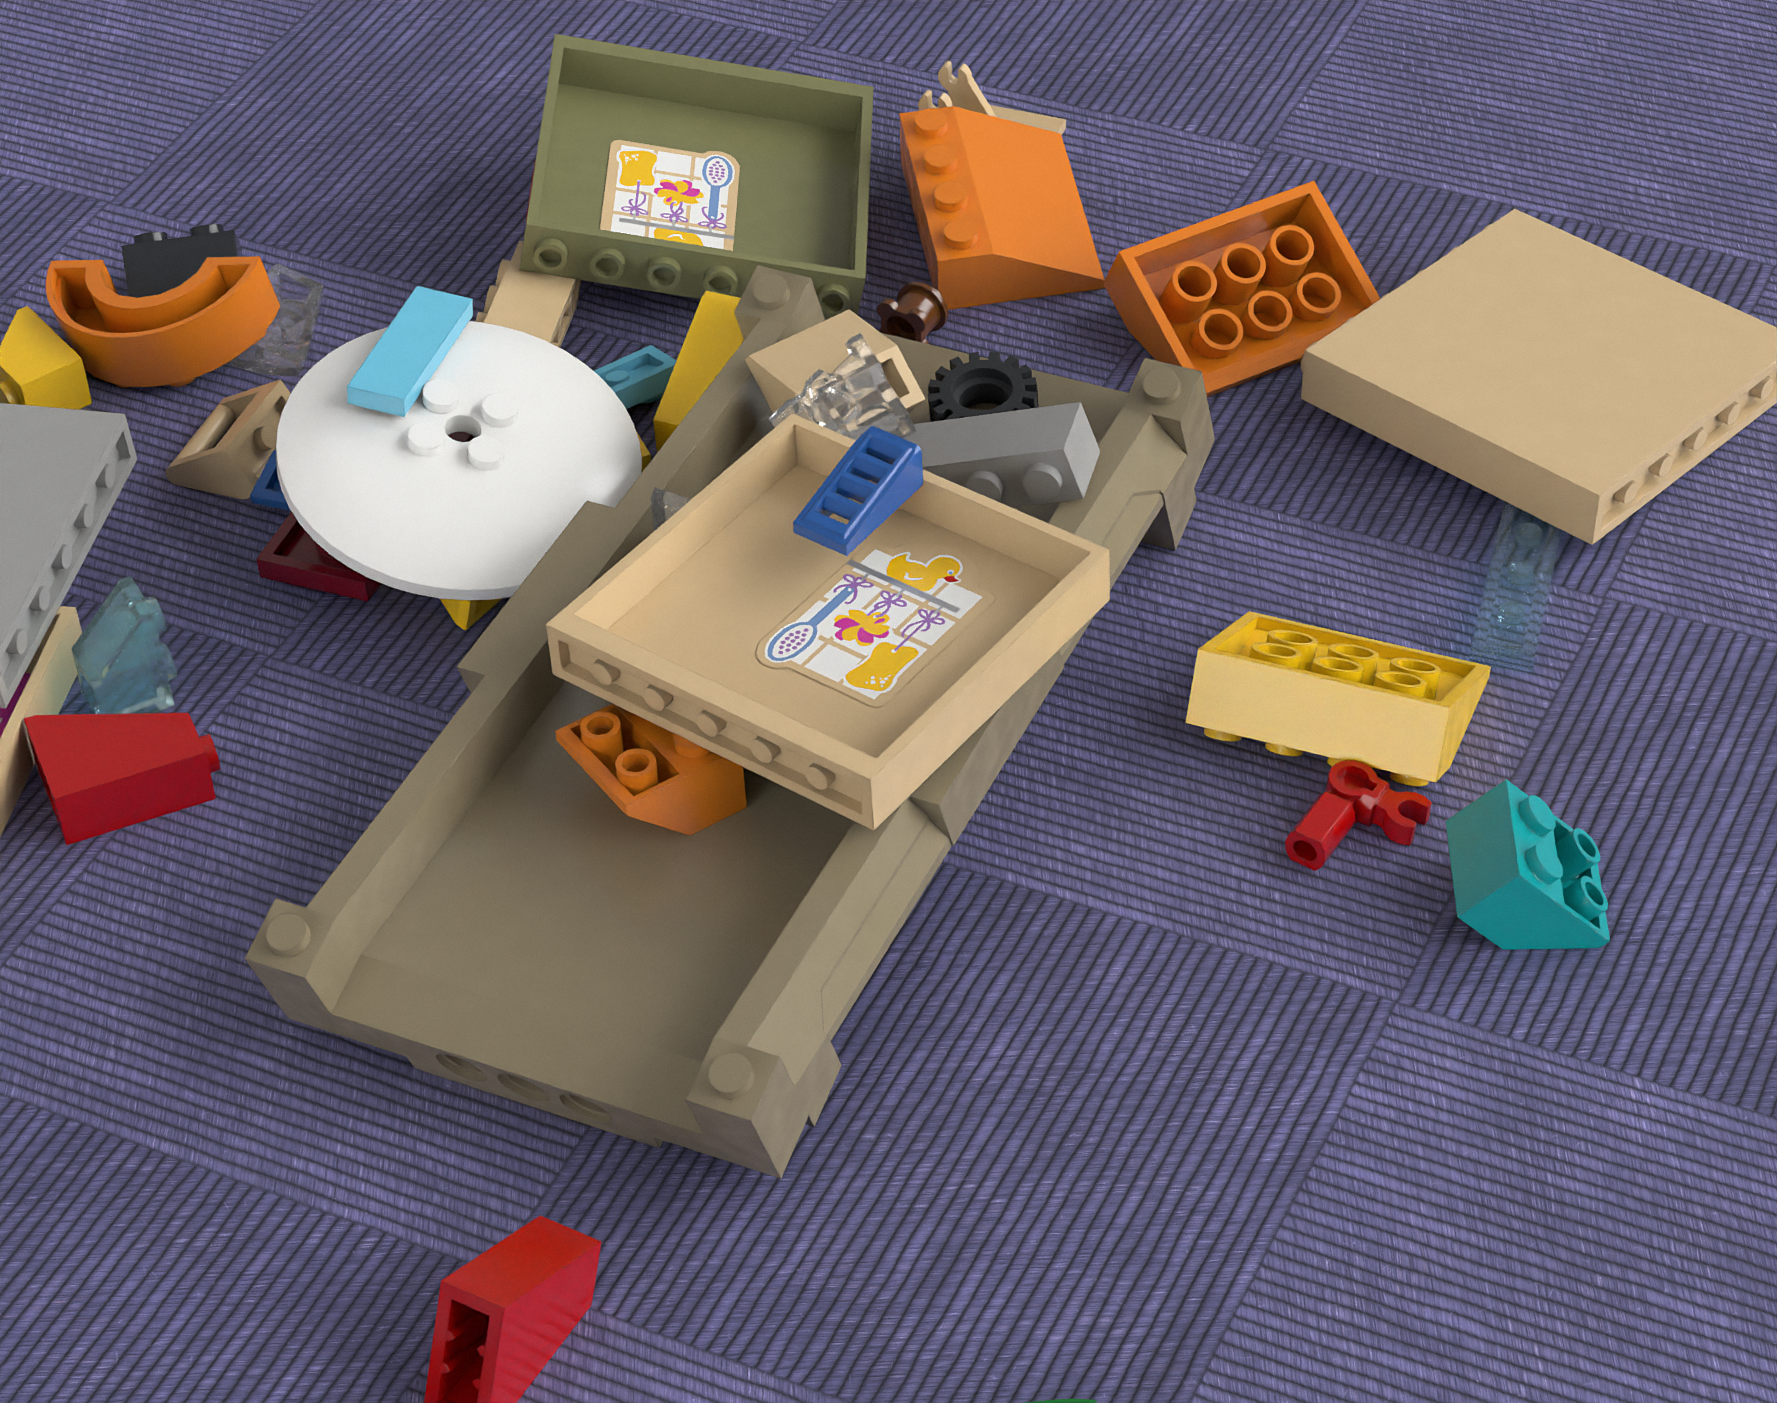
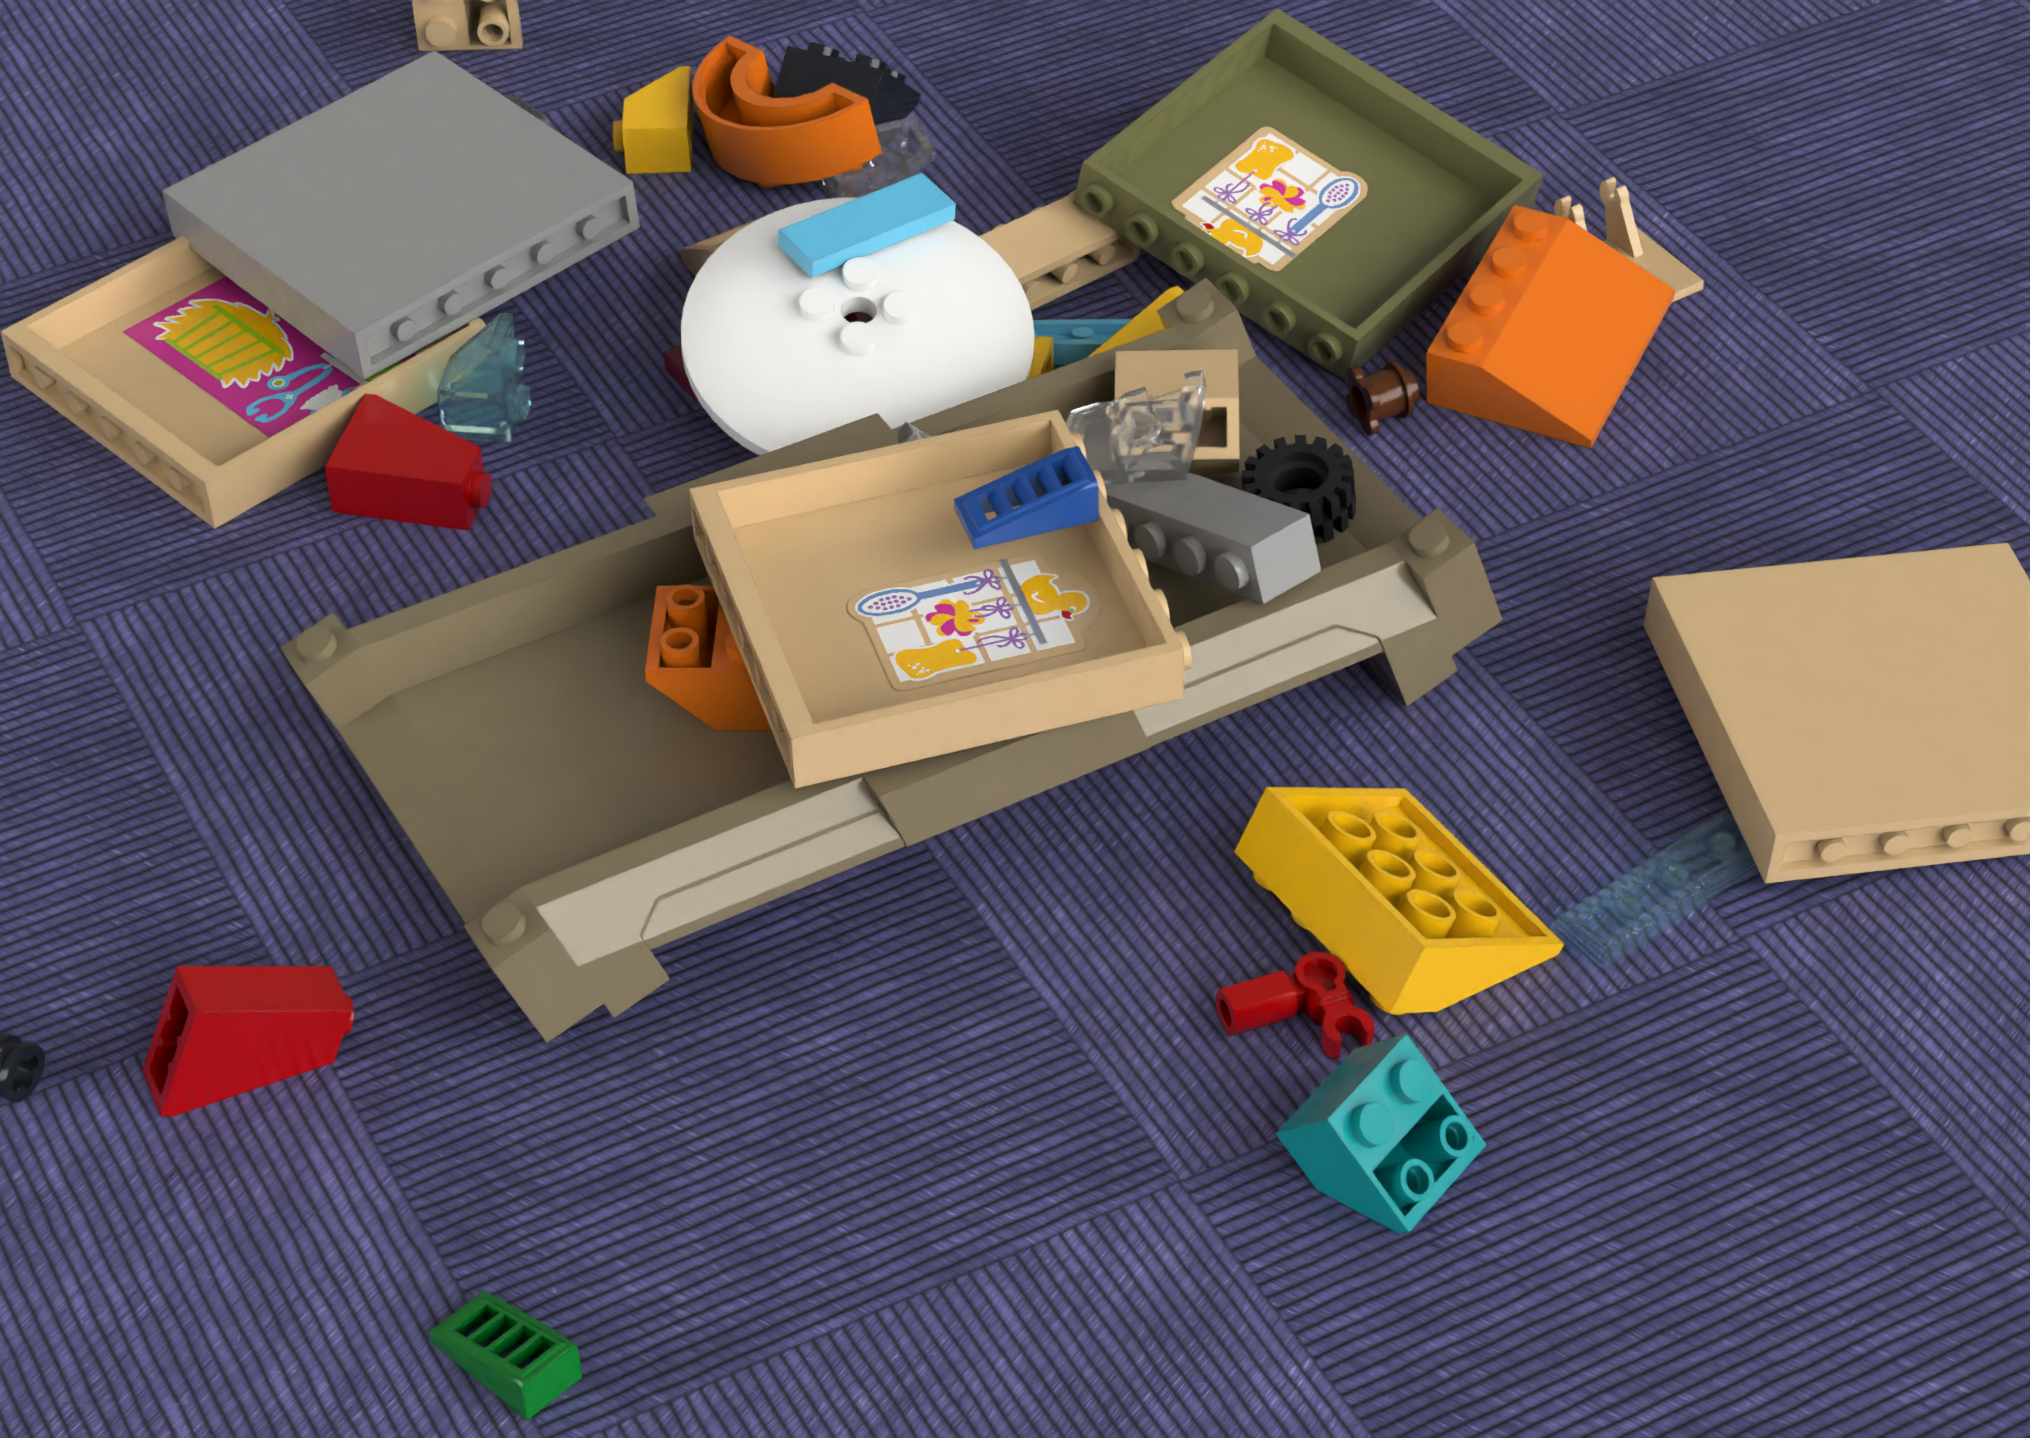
camera: 35 degrees right, 0 degrees up
(1242, 288) = (1686, 498): orange slope -> none

